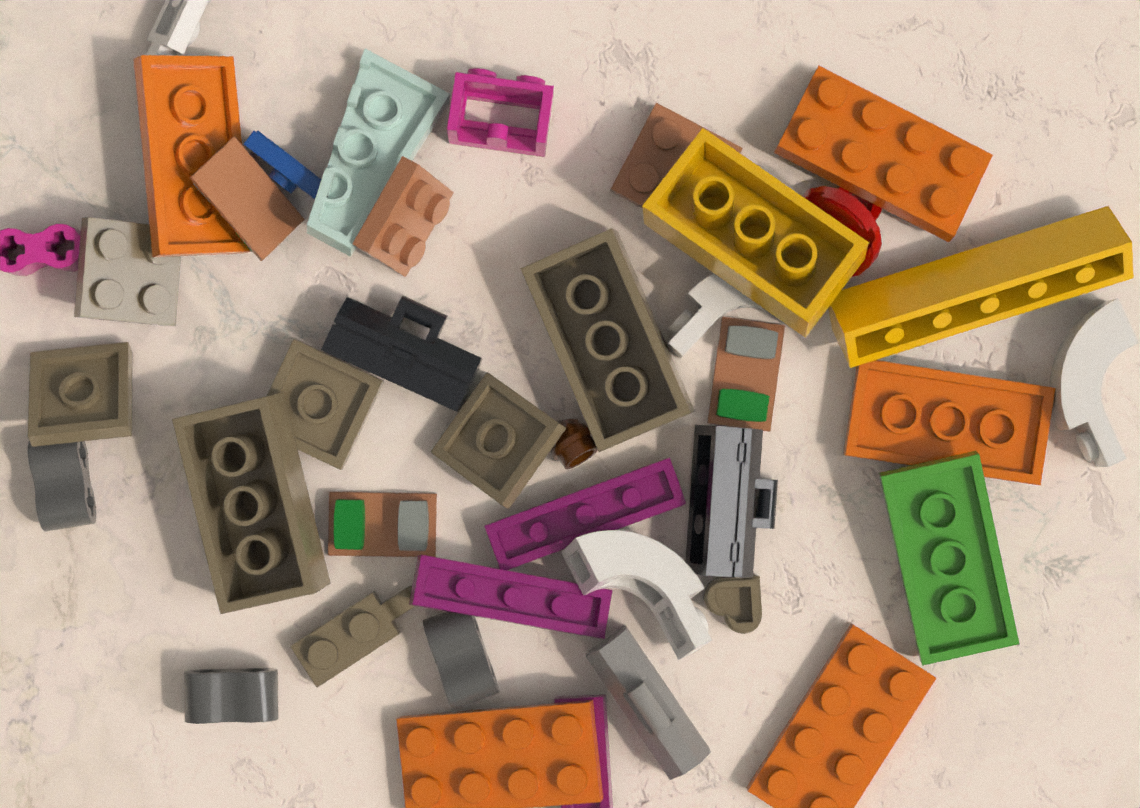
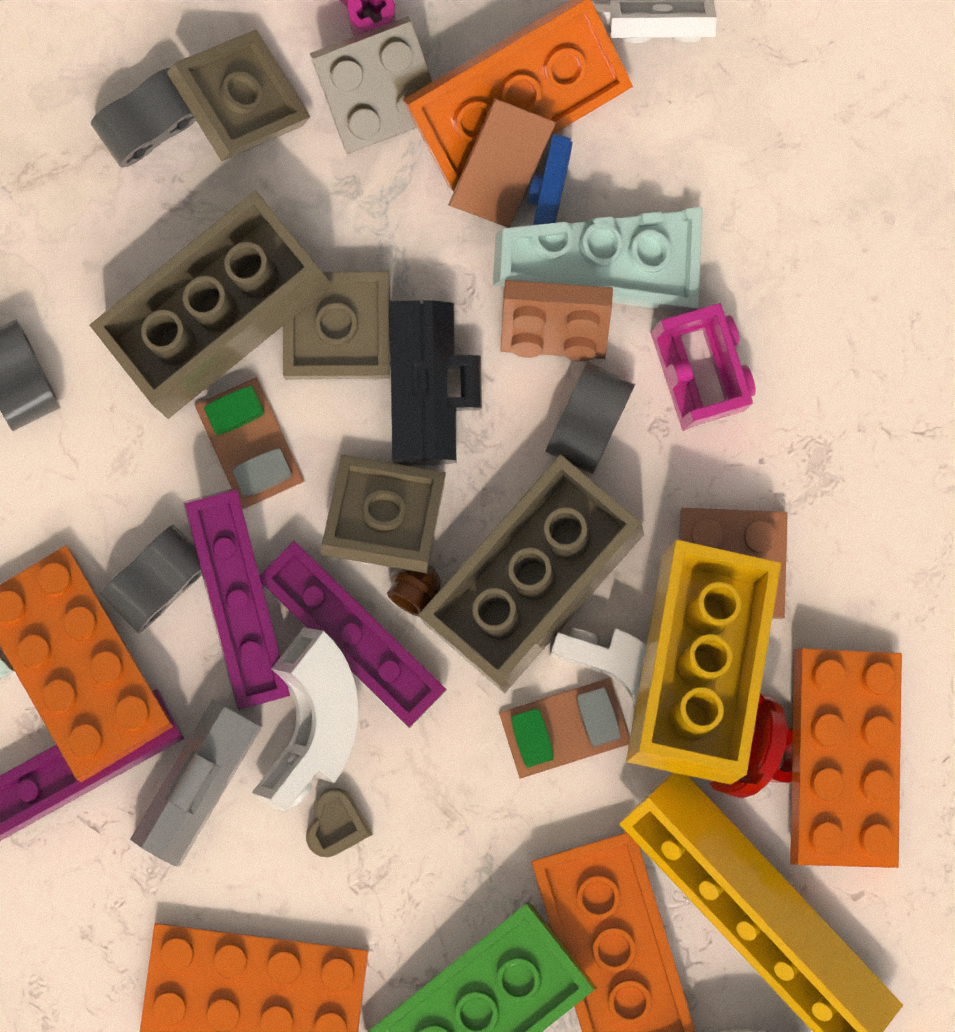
camera: 65 degrees right, 5 degrees down
(351, 635) = (126, 463): dark tan plate -> none
(498, 228) = (590, 417): none -> dark grey axle
(722, 501) = (428, 762): piece -> none

